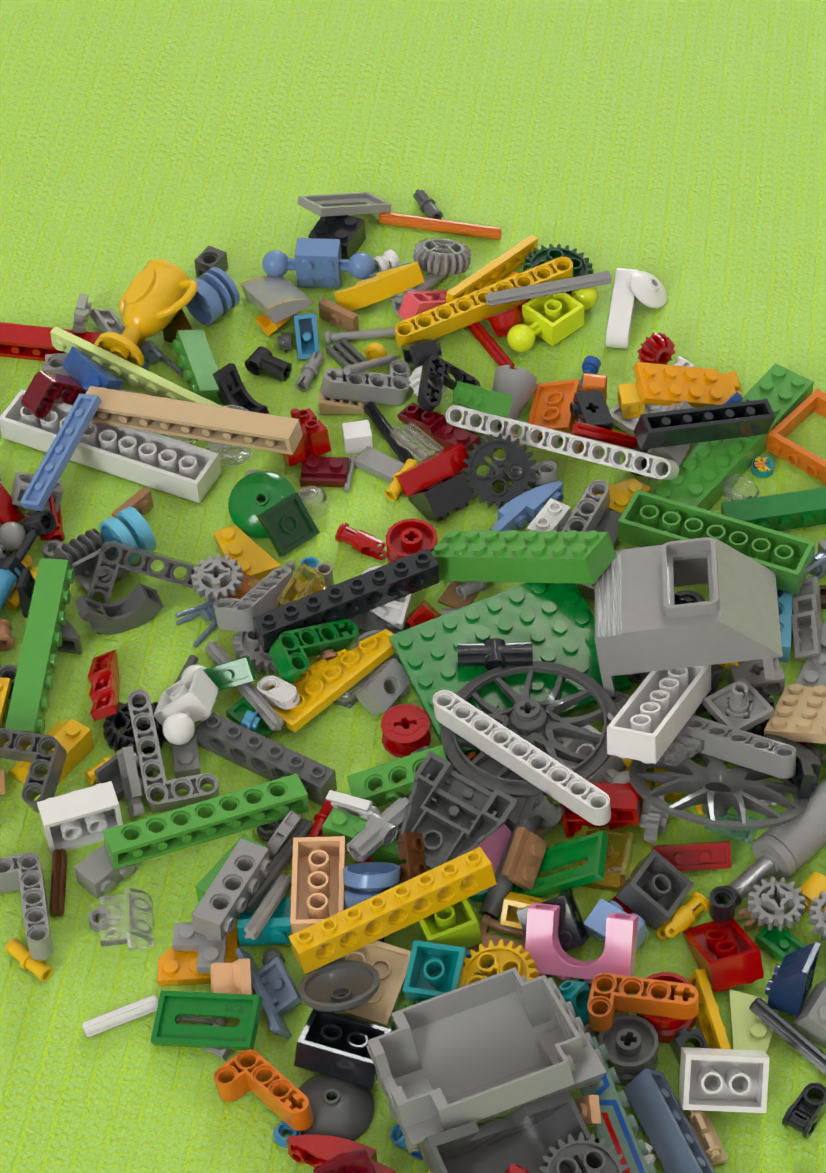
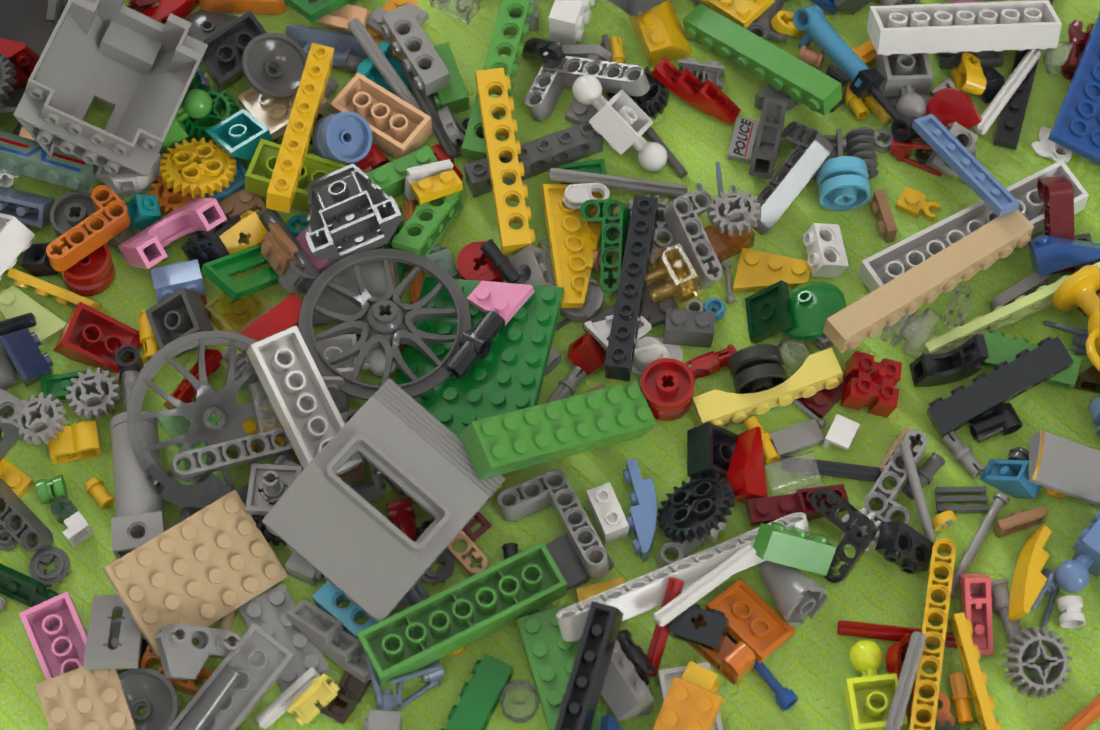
camera: 125 degrees right, 15 degrees up
(78, 691) = (711, 69): none -> light grey hinge
(101, 503) = (914, 202): none -> yellow plate
(125, 637) = (743, 140): none -> light grey tile
(148, 798) = (542, 50): none -> black hinge
(198, 523) = (825, 250): none -> white brick
(231, 673) = (626, 166): plate -> none
(251, 720) = (572, 161): dark azure plate -> none
(253, 367) = (1000, 386): none -> black brick
(298, 748) = (490, 82): none -> yellow brick
(322, 465) = (817, 373): none -> light yellow arch
(343, 560) = (688, 328): none -> dark grey brick
(350, 497) = (757, 368): none -> pearl dark grey wheel
(362, 788) = (436, 186): none -> yellow plate
(378, 831) = (380, 163): light grey piece -> none
(397, 701) = (500, 262): none -> black pin
(412, 849) = (331, 163): reddish brown hinge -> none
(436, 667) = (500, 297): none -> bright pink wing
(522, 757) = (336, 273): white beam -> none
(562, 415) = (704, 585): none -> white axle

